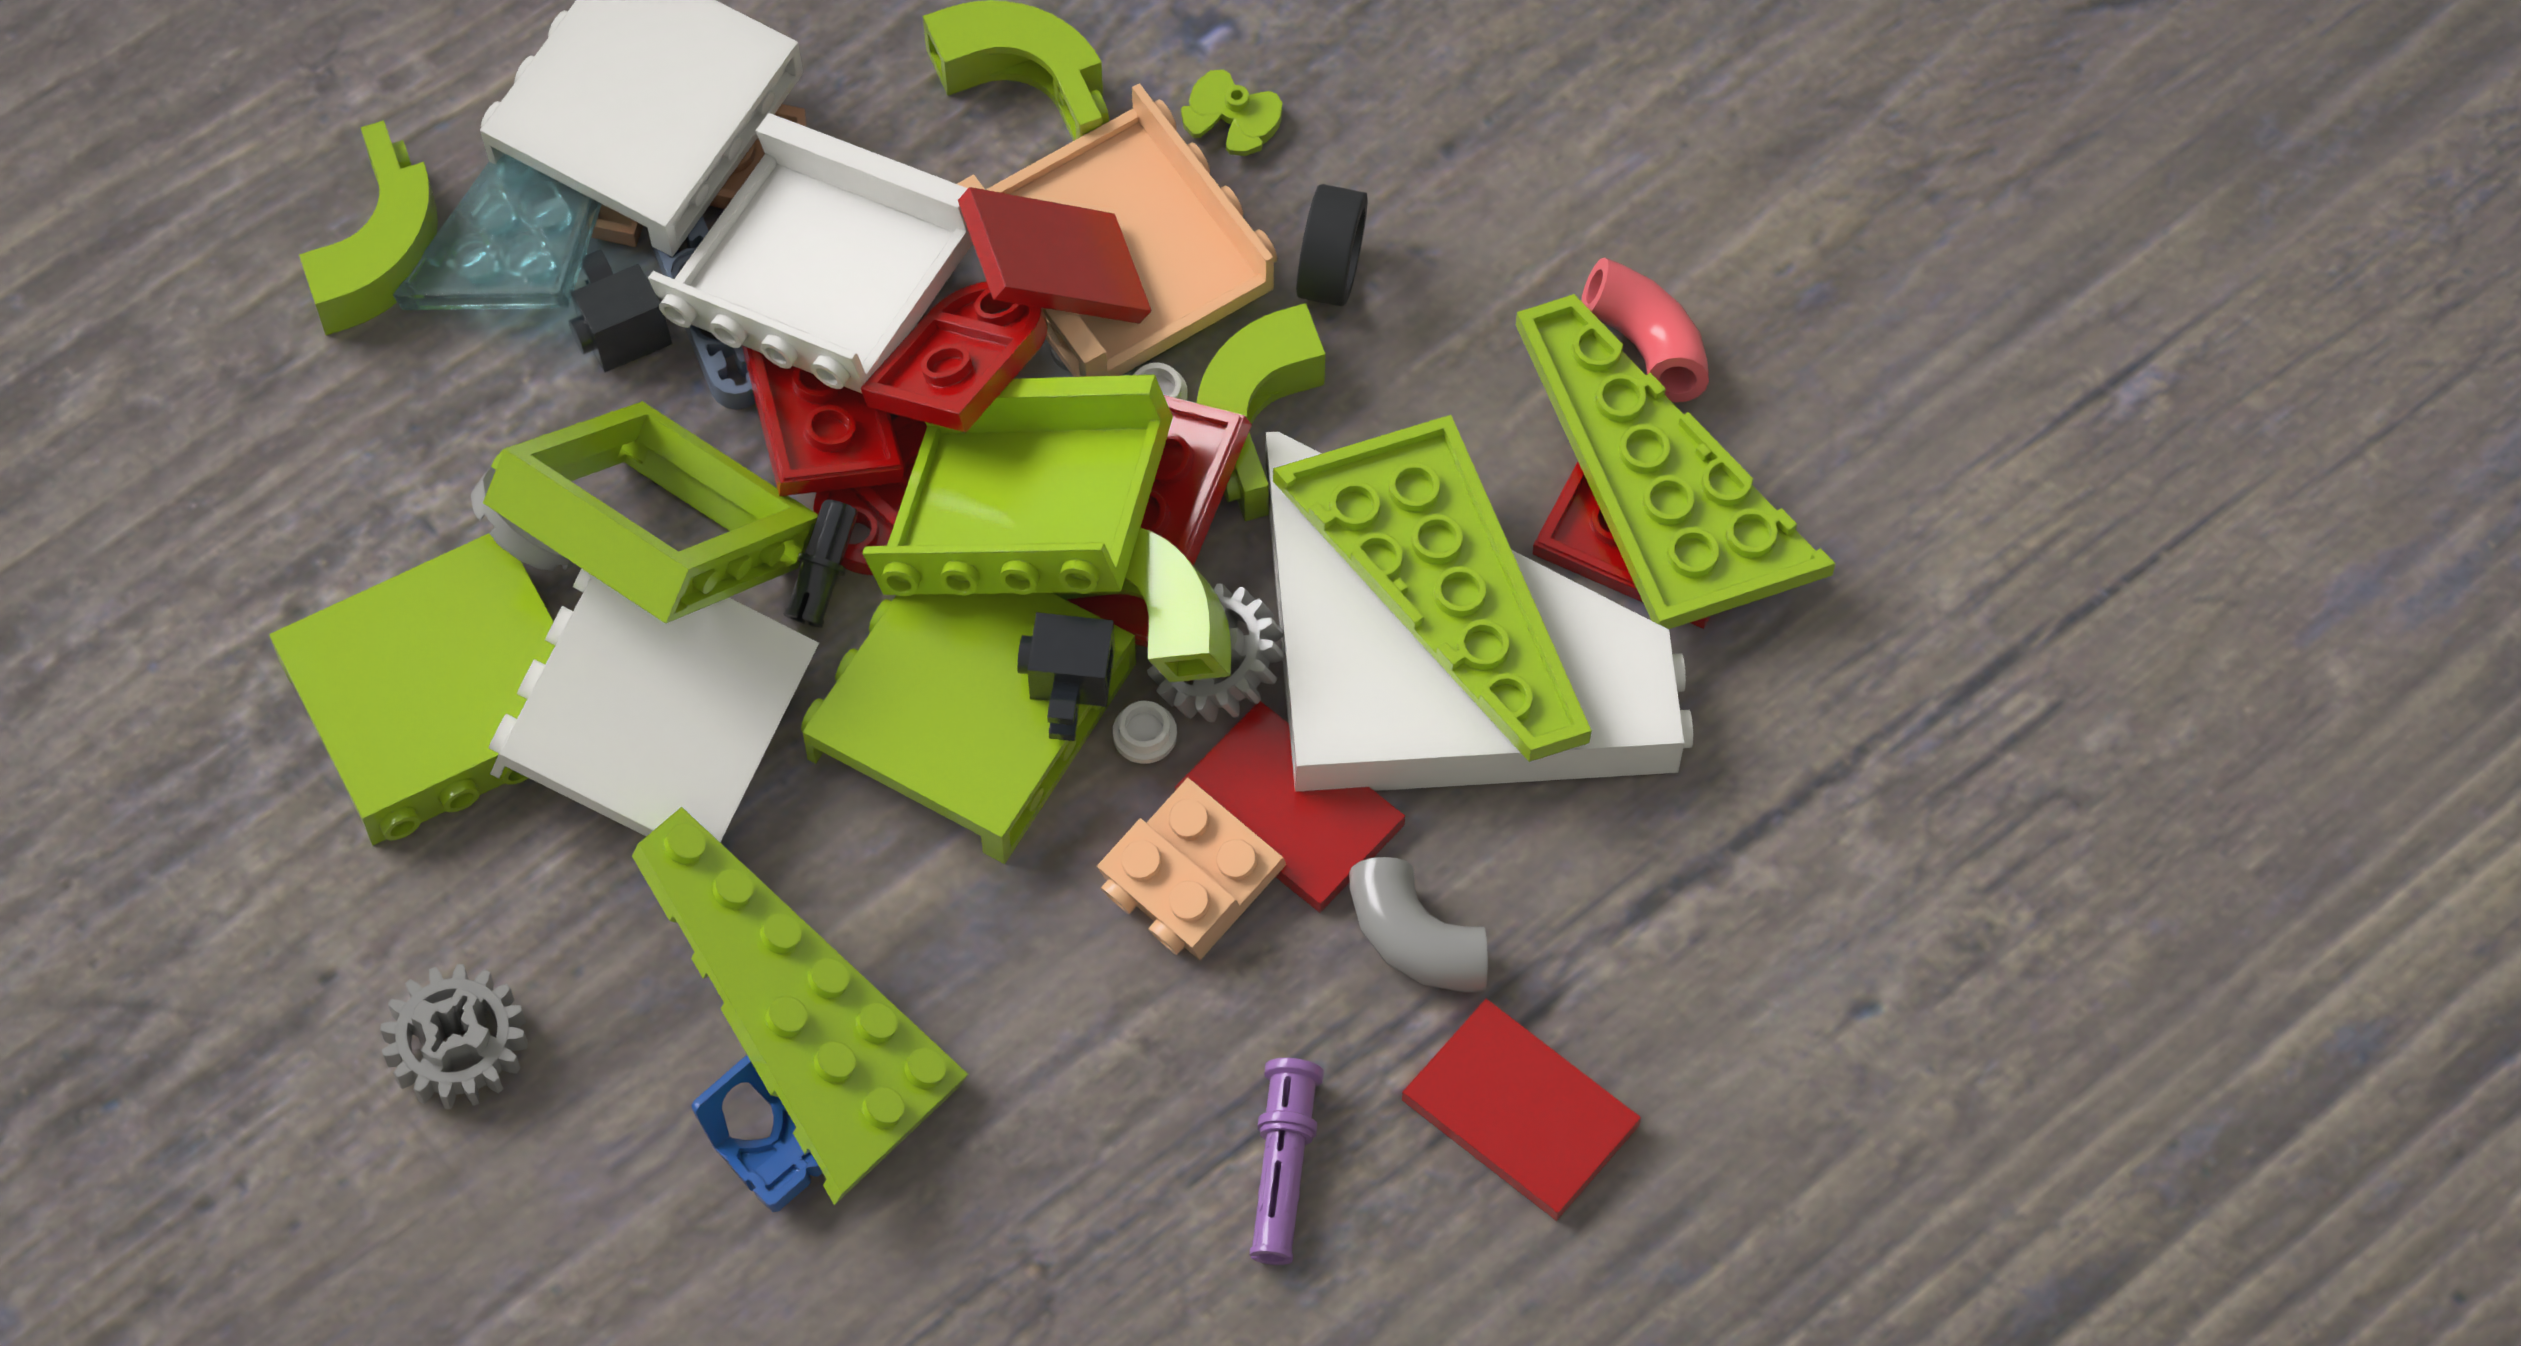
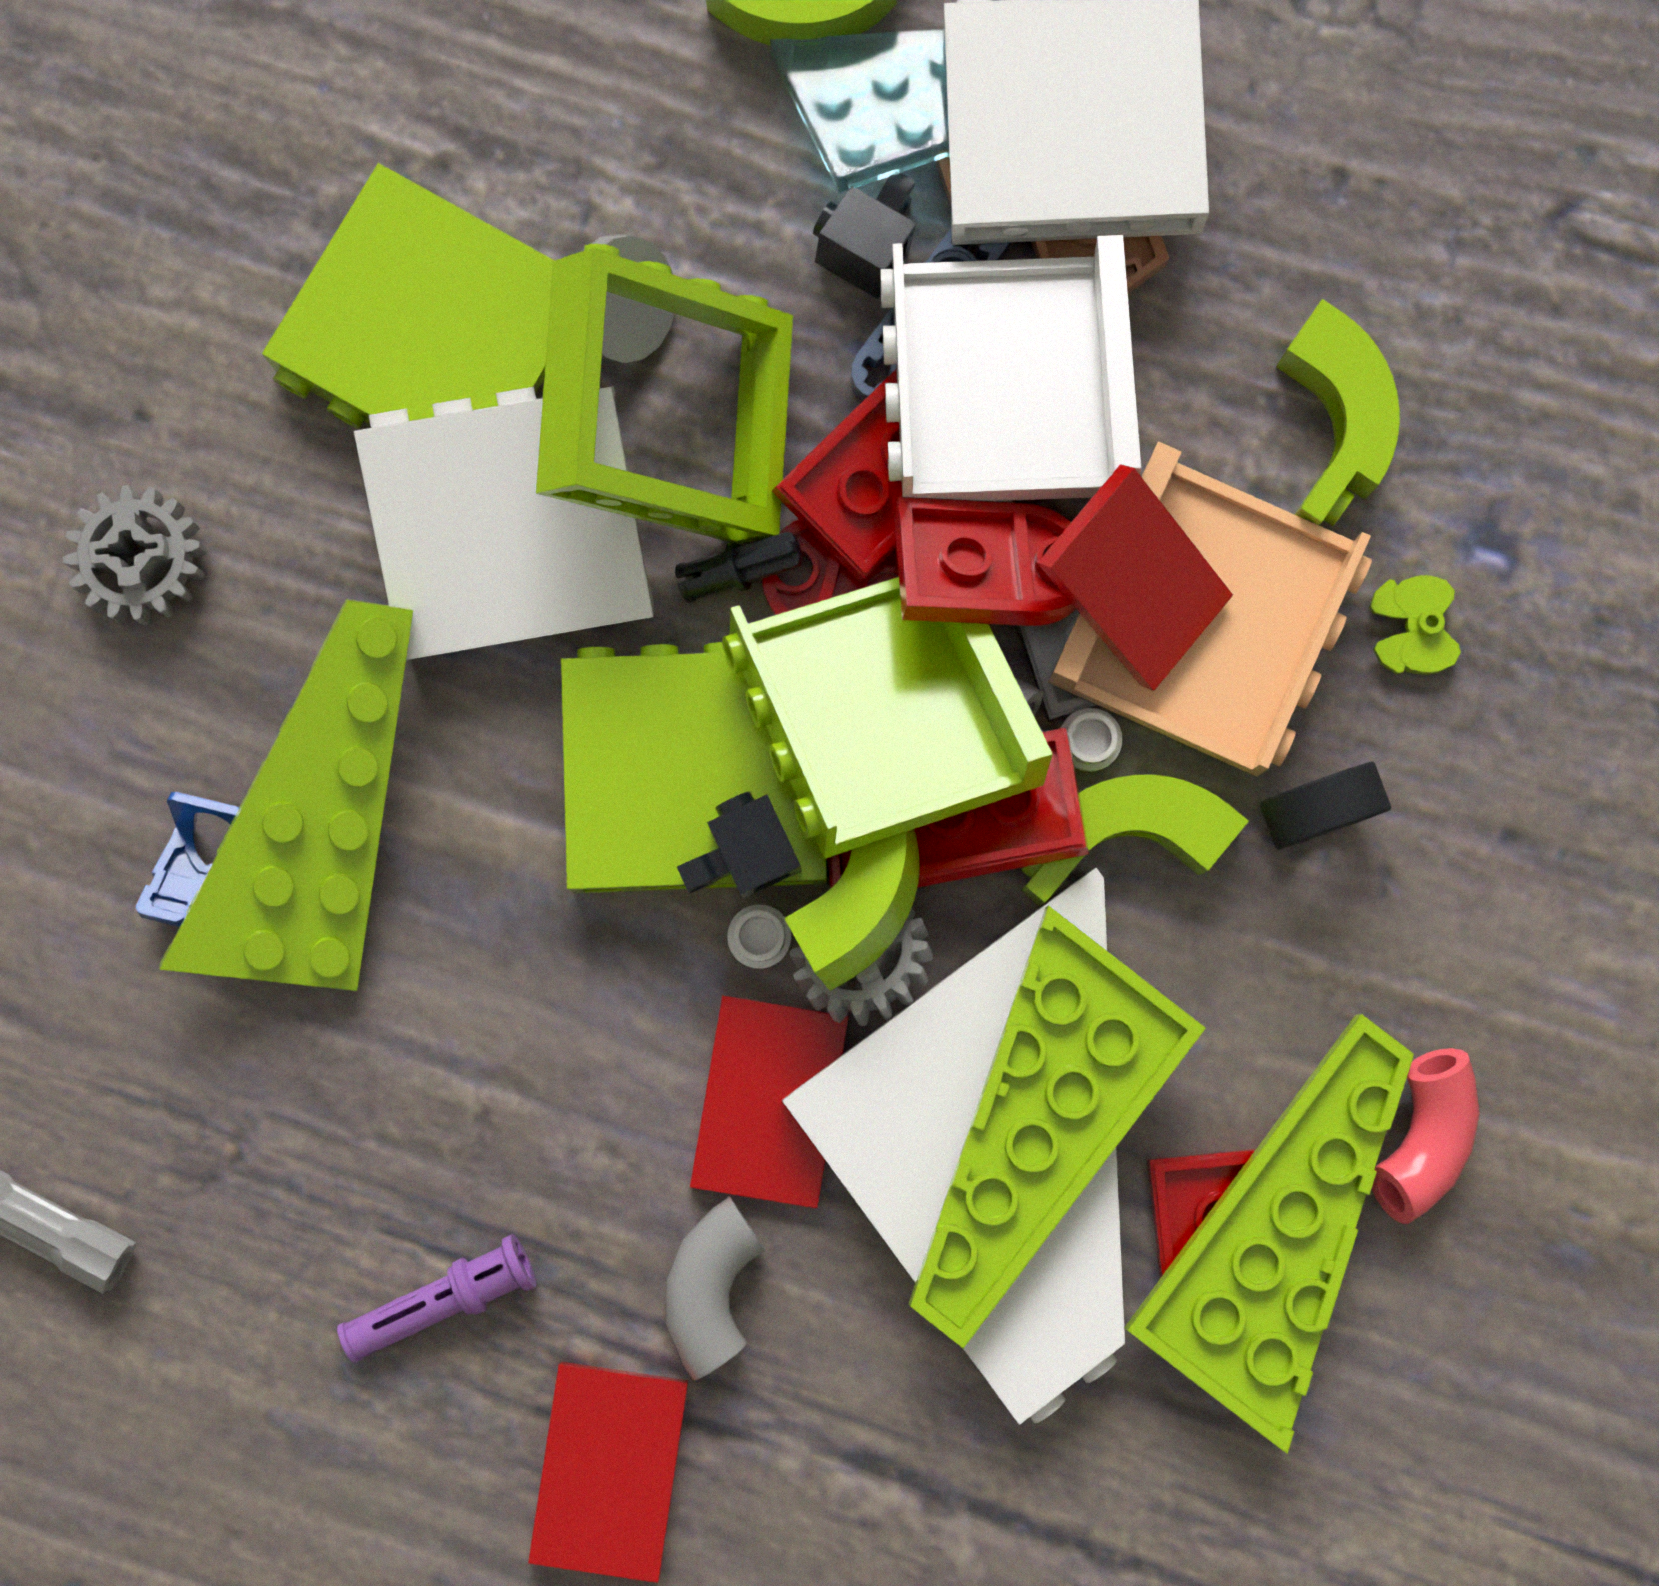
camera: 60 degrees right, 20 degrees up
(1189, 870) = (648, 1059): light nougat plate -> none

